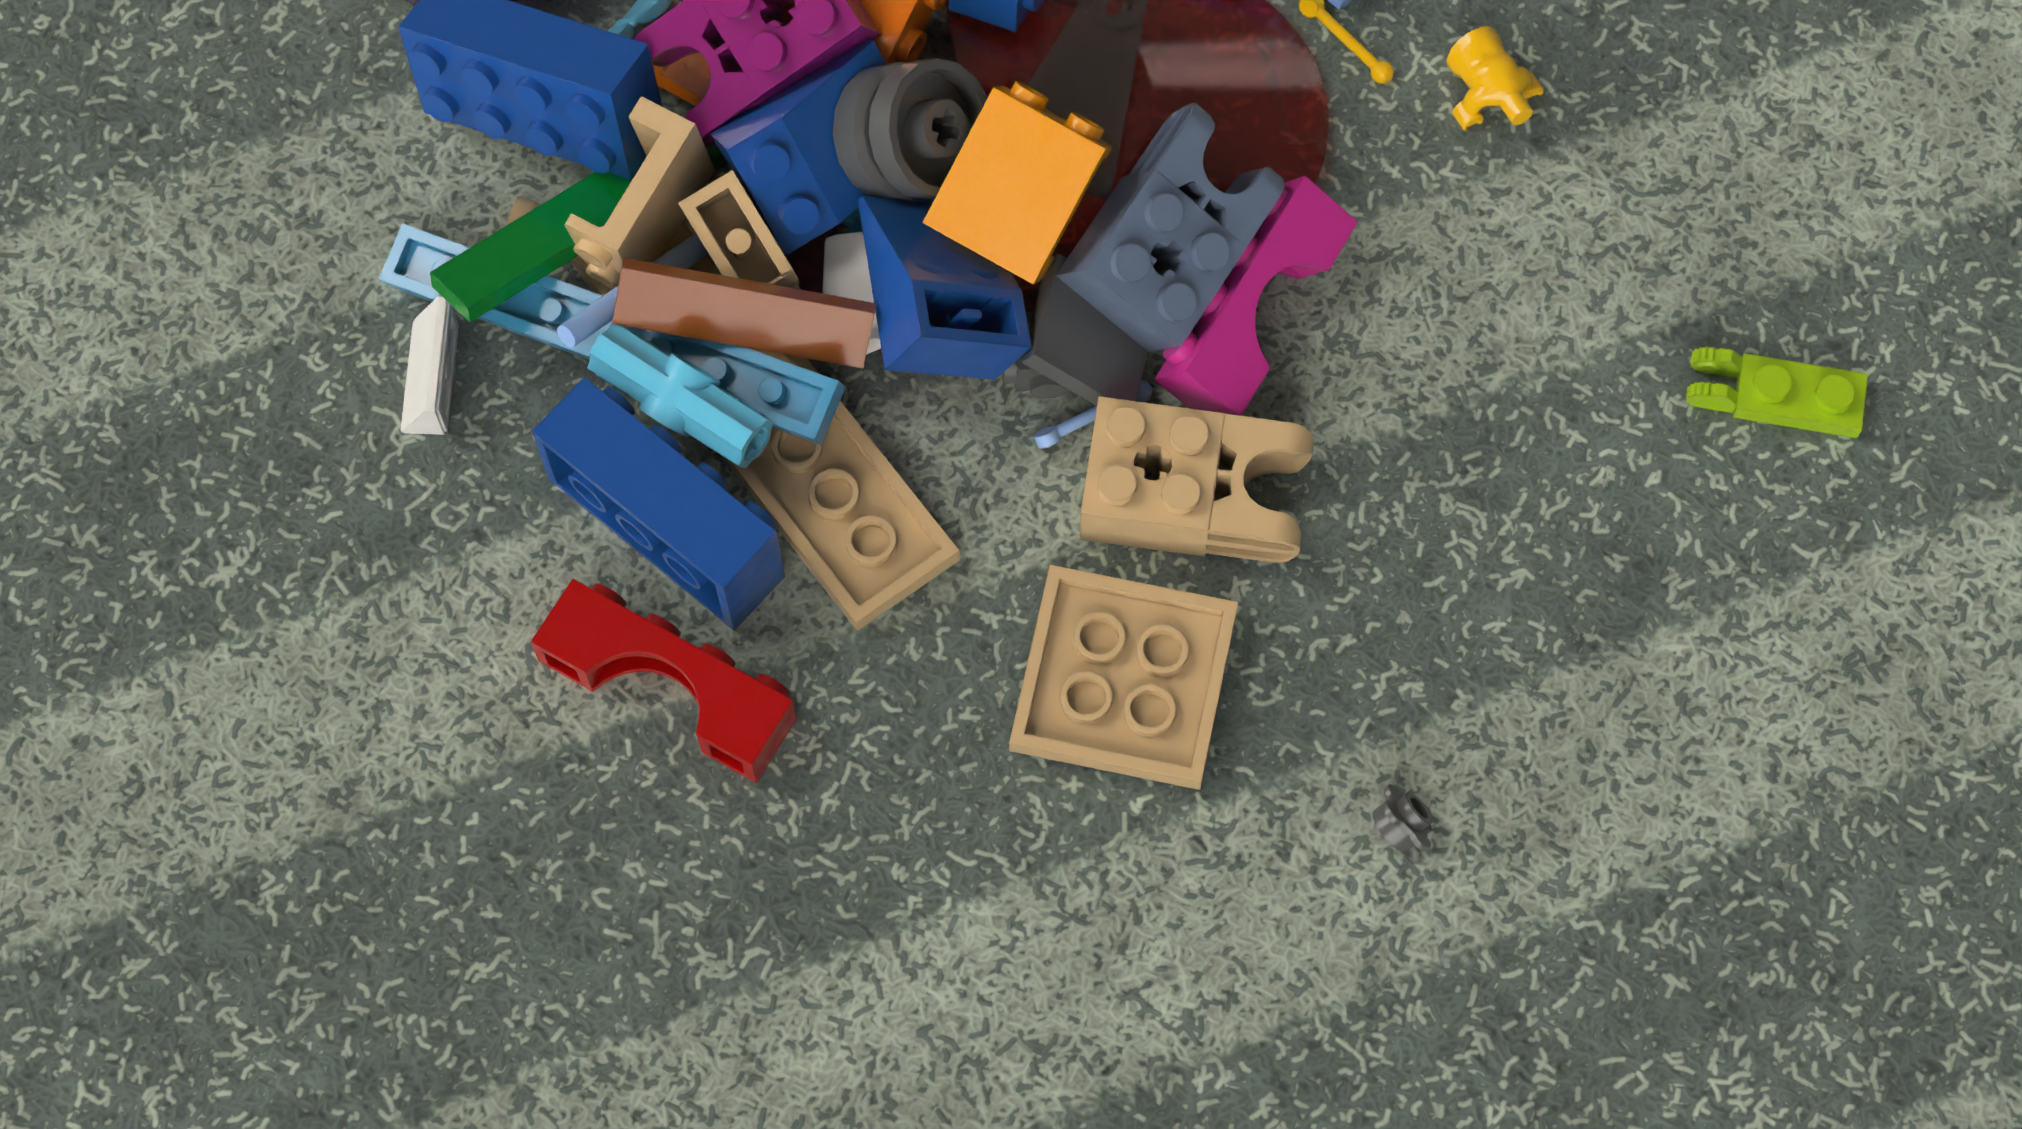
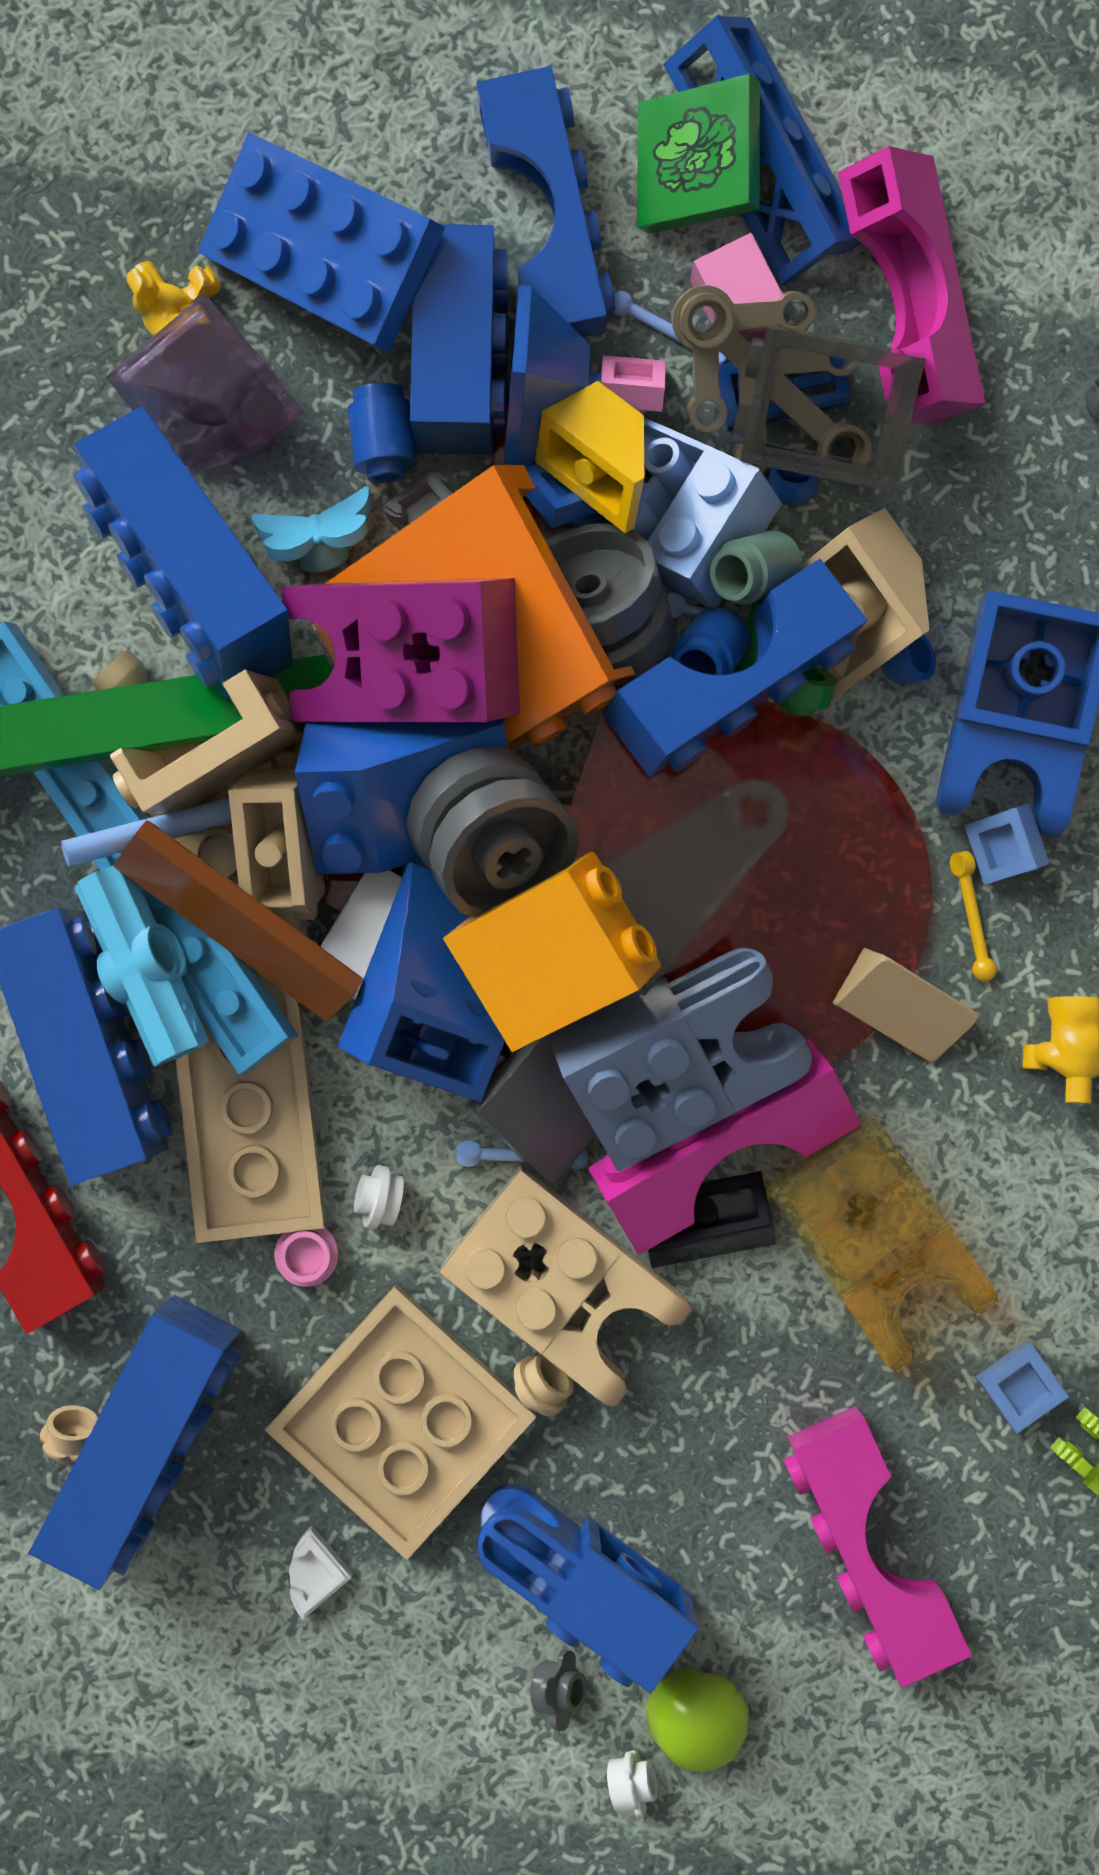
camera: 25 degrees right, 20 degrees up
(840, 849) = (67, 1433): none -> tan plate
(902, 803) = (134, 1443): none -> blue brick
(957, 590) = (306, 1256): none -> bright pink plate
(992, 505) = (379, 1197): none -> white plate
(1127, 852) = (315, 1572): none -> white tile
(1226, 576) = (542, 1385): none -> tan plate
(1300, 372) = (728, 1218): none -> black slope
(1334, 119) = (903, 1006): none -> tan slope
(1364, 696) = (587, 1585): none -> blue brick
(1442, 305) = (885, 1251): none -> clear yellow brick
(1518, 864) = (631, 1783): none -> white plate
(1540, 784) = (697, 1719): none -> lime hair
(1628, 361) = (1021, 1386): none -> medium blue plate
(1655, 593) = (909, 1617): none -> dark pink arch

